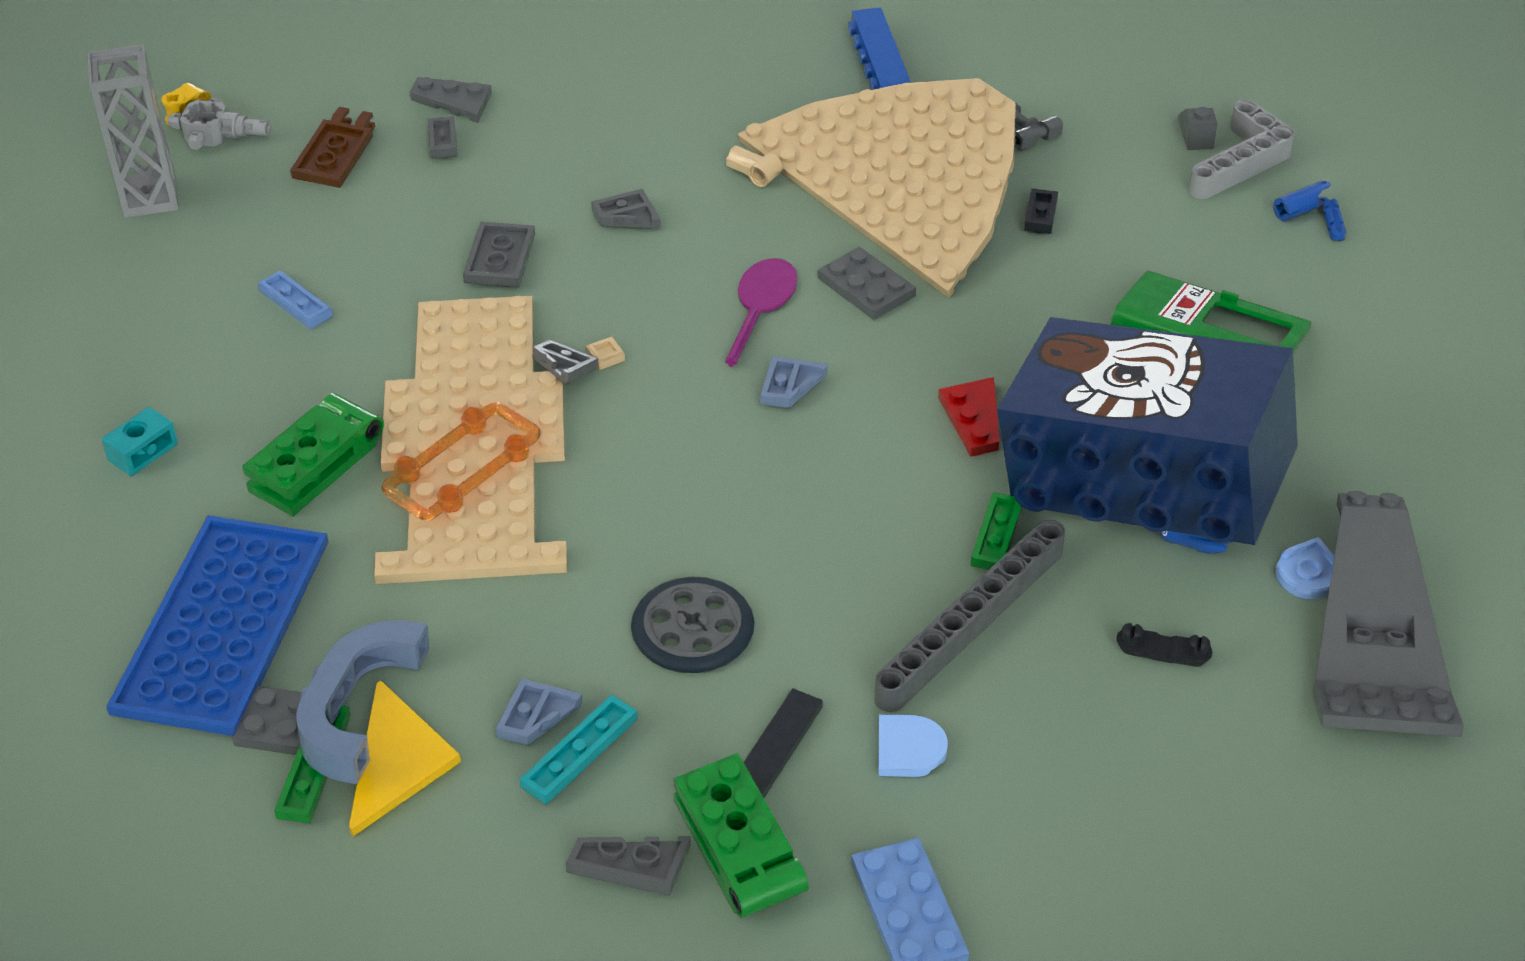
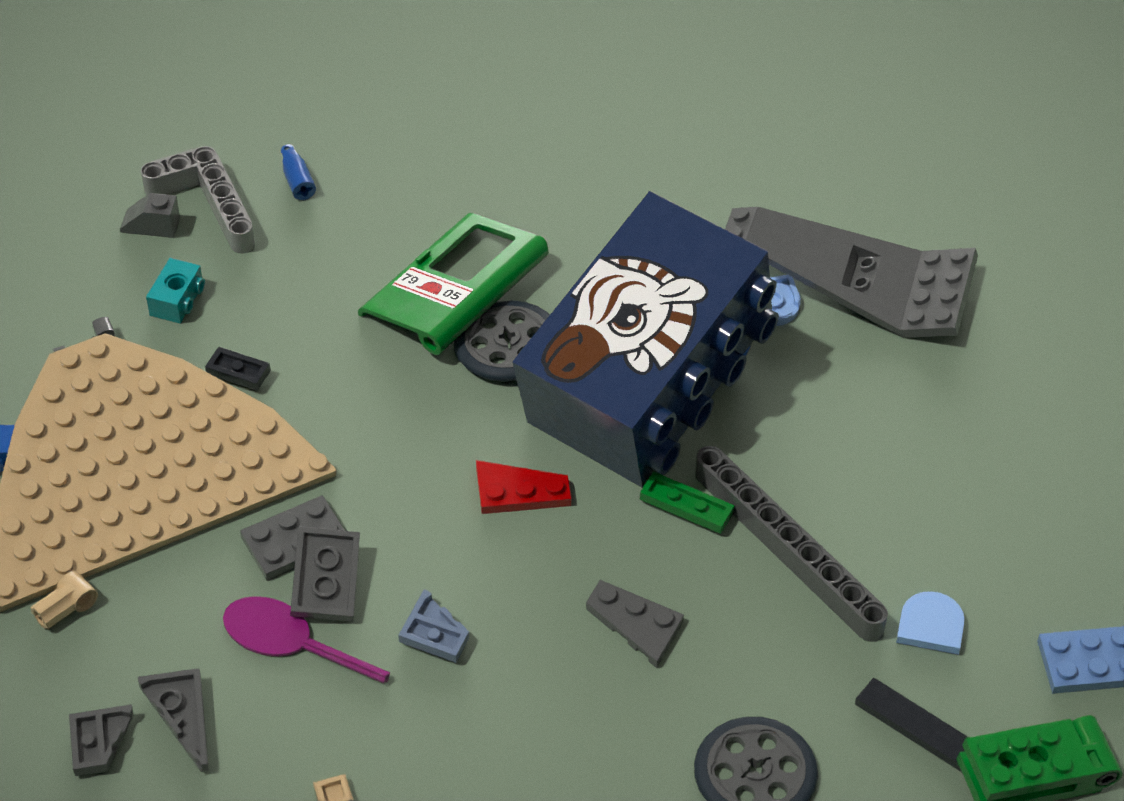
camera: 80 degrees left, 5 degrees up
(665, 250) = (179, 703): none -> dark grey wing
(823, 299) = (325, 574): none -> dark grey plate
(842, 518) = (639, 620): none -> dark grey wing
(1114, 155) = (175, 290): none -> teal brick
(1176, 649) = (847, 415): black piece -> none
(1334, 219) = (328, 160): blue axle -> none

